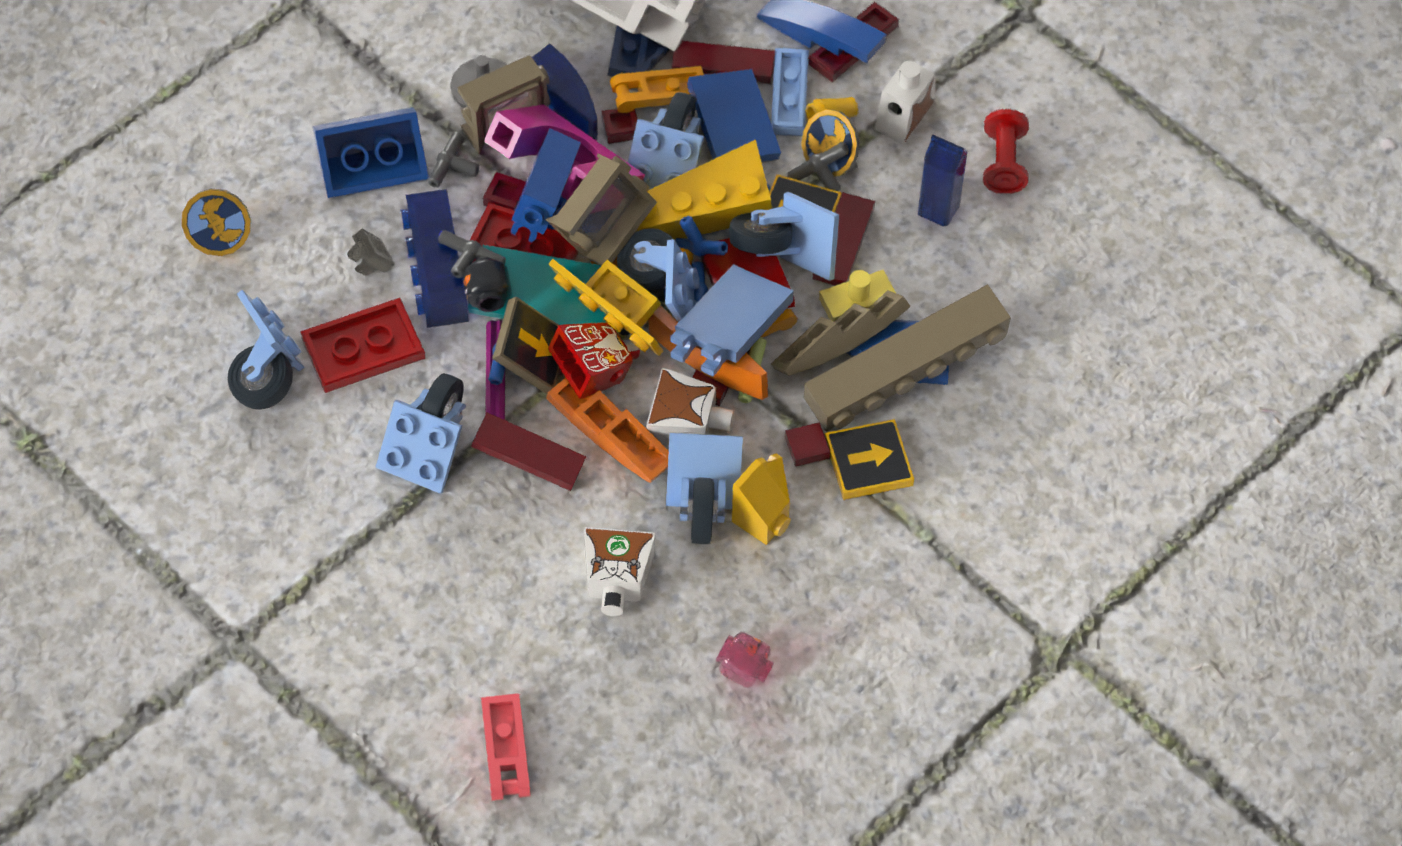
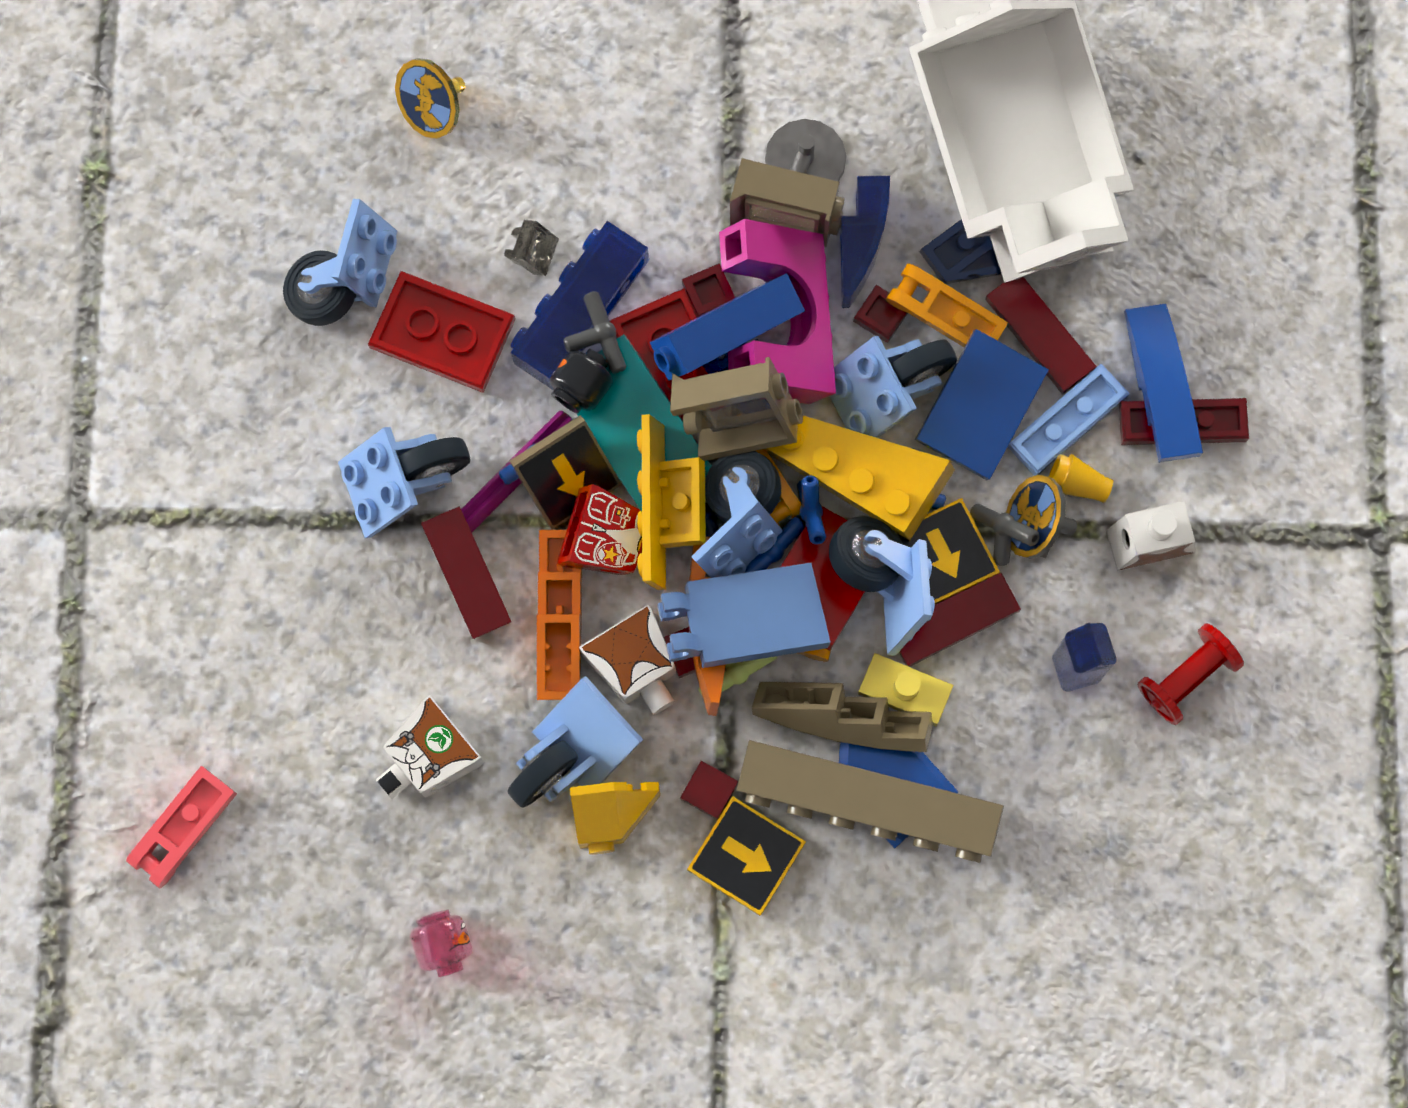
camera: 50 degrees right, 20 degrees up
(370, 152) = (631, 141): blue slope -> none
(448, 160) = (692, 210): dark grey piece -> none

